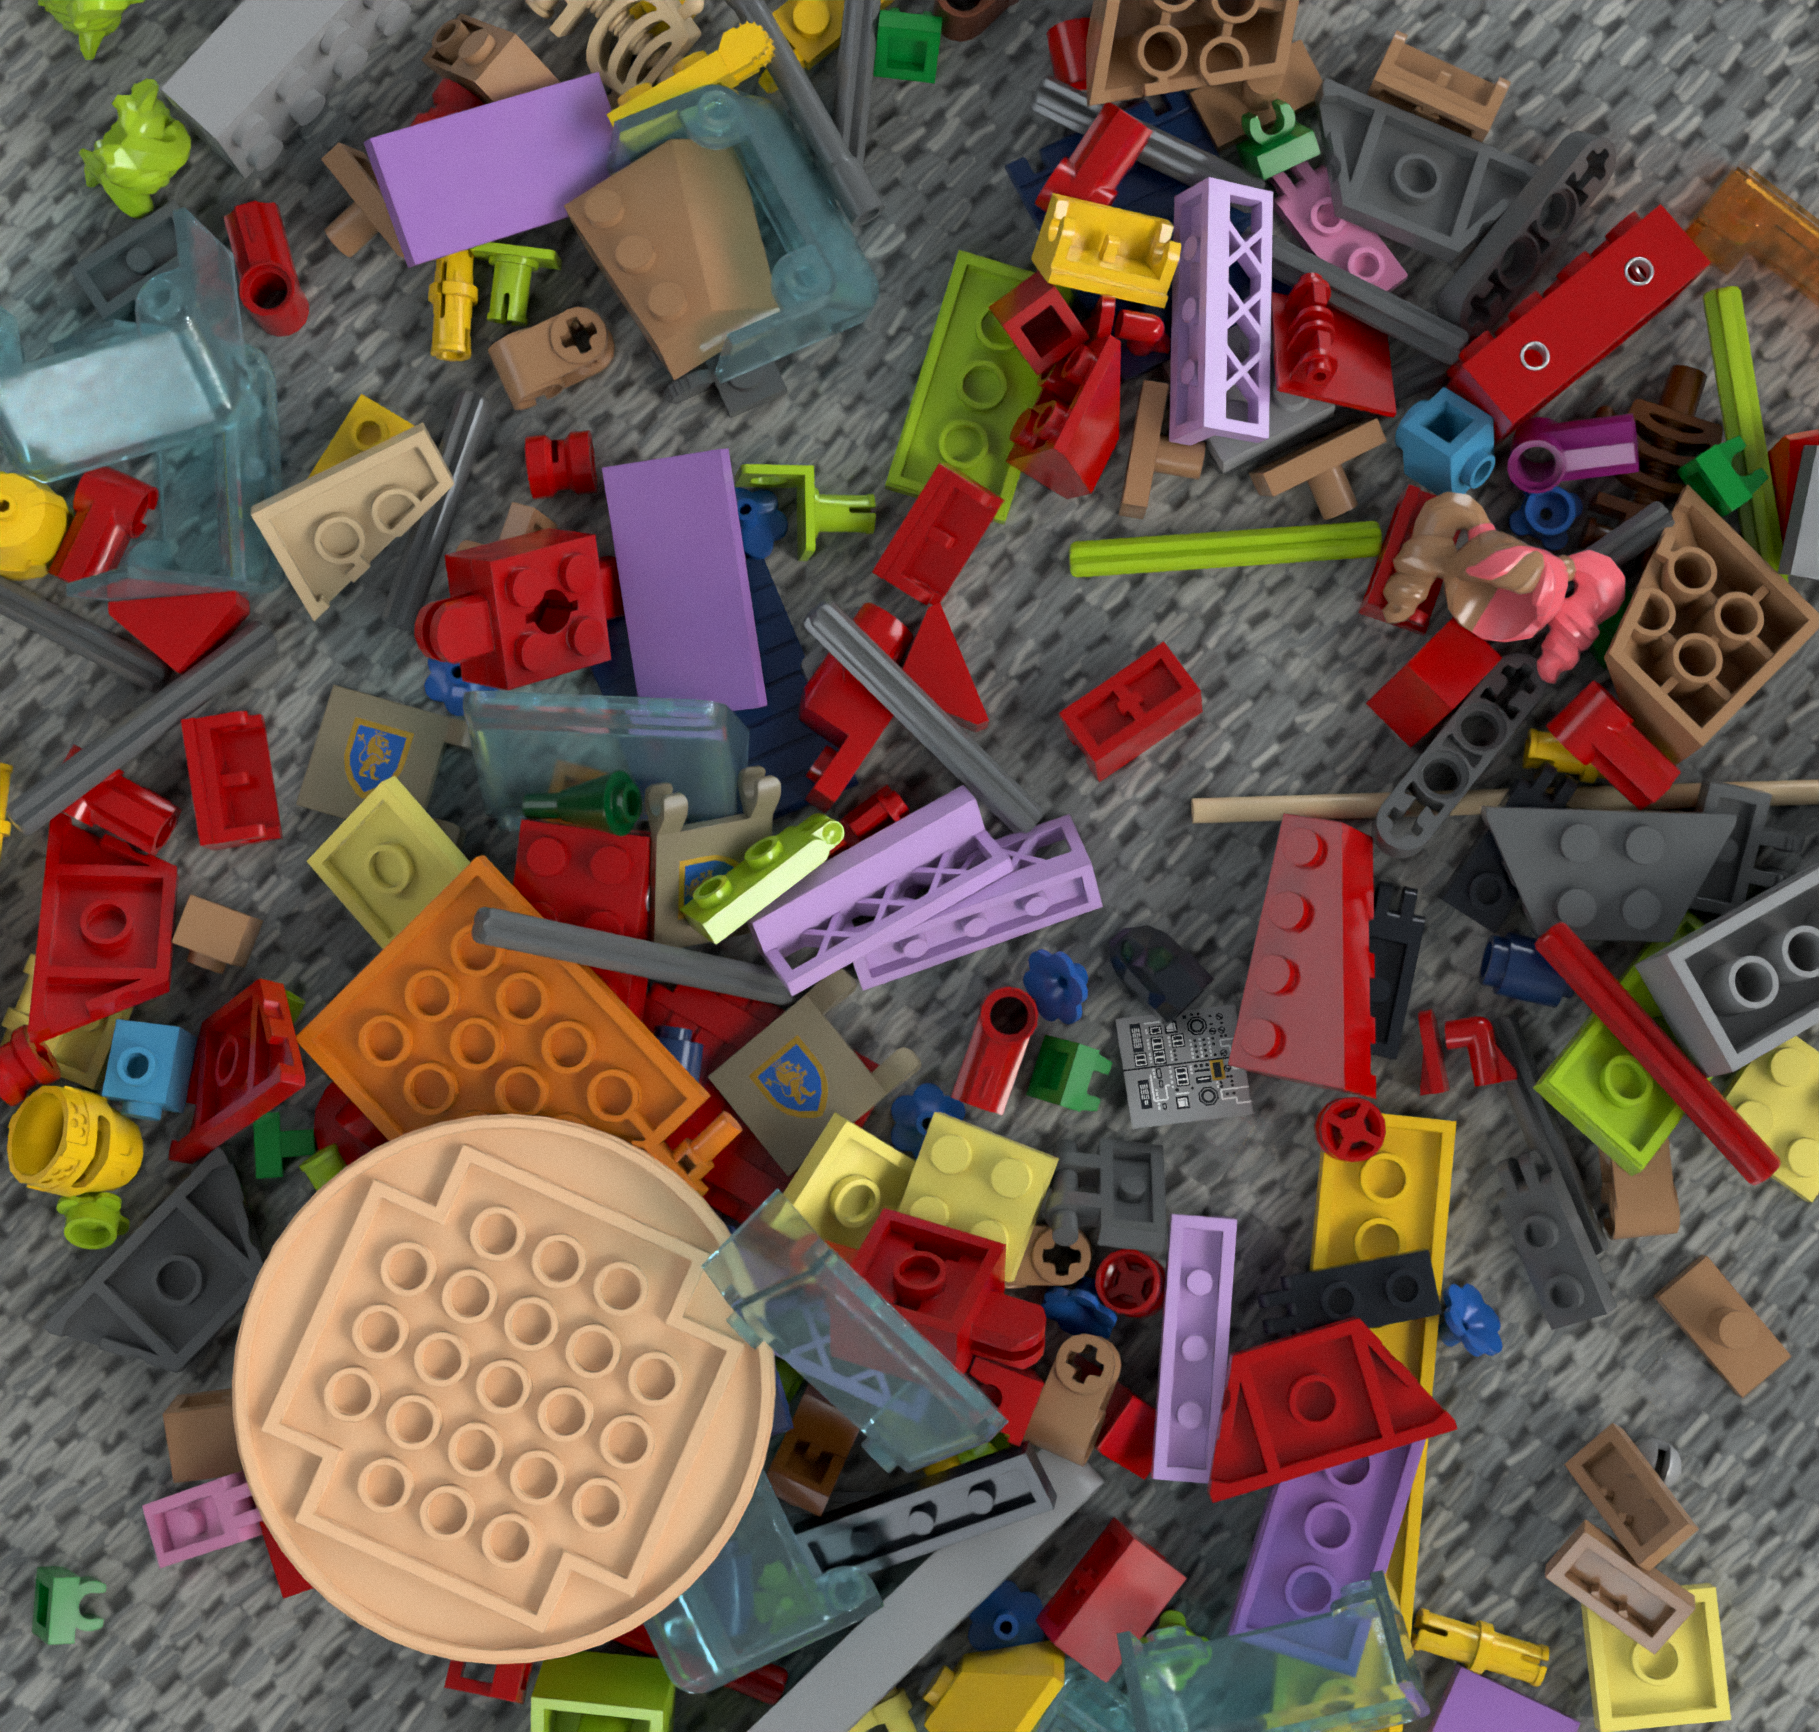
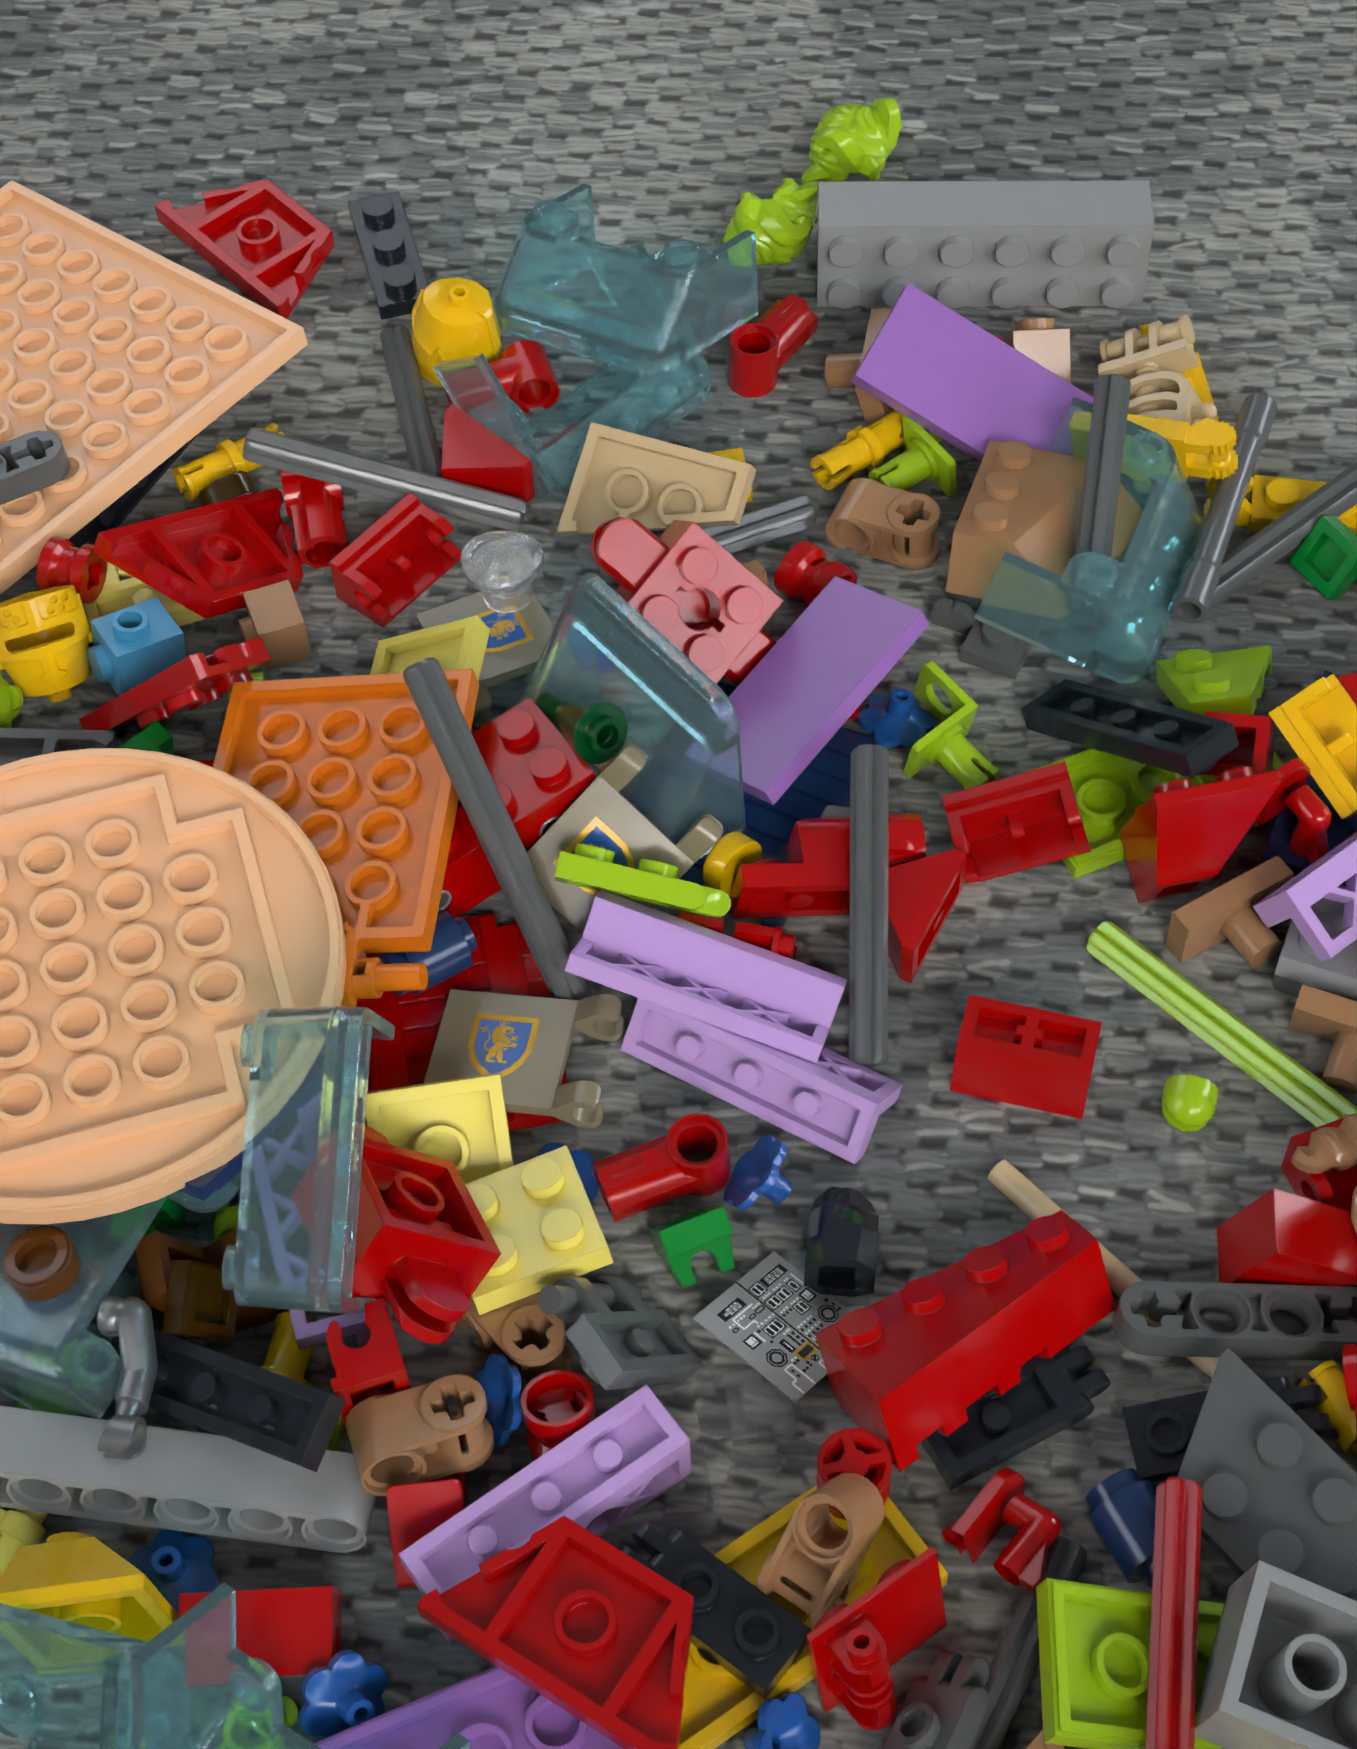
camera: 50 degrees right, 30 degrees down
(24, 861) = (227, 488): none -> dark brown tile
(329, 706) = (503, 568): none -> clear piece
(708, 175) = (1103, 464): none -> dark grey axle
(737, 1575) = (41, 1263): none -> reddish brown tile
(785, 765) = (725, 859): none -> yellow tile
(847, 1473) = (198, 1303): none -> dark brown tile
(863, 1553) = (133, 1323): none -> flat silver arm
(945, 259) = (1215, 681): none -> lime wing
(946, 381) = (1131, 727): none -> black plate
(1206, 1580) = (342, 1694): none -> blue plant
(1265, 635) = (1188, 1101): none -> lime hinge
(1391, 1198) = (815, 1557): none -> medium nougat piece
(1473, 1240) = (863, 1639): none -> red hinge

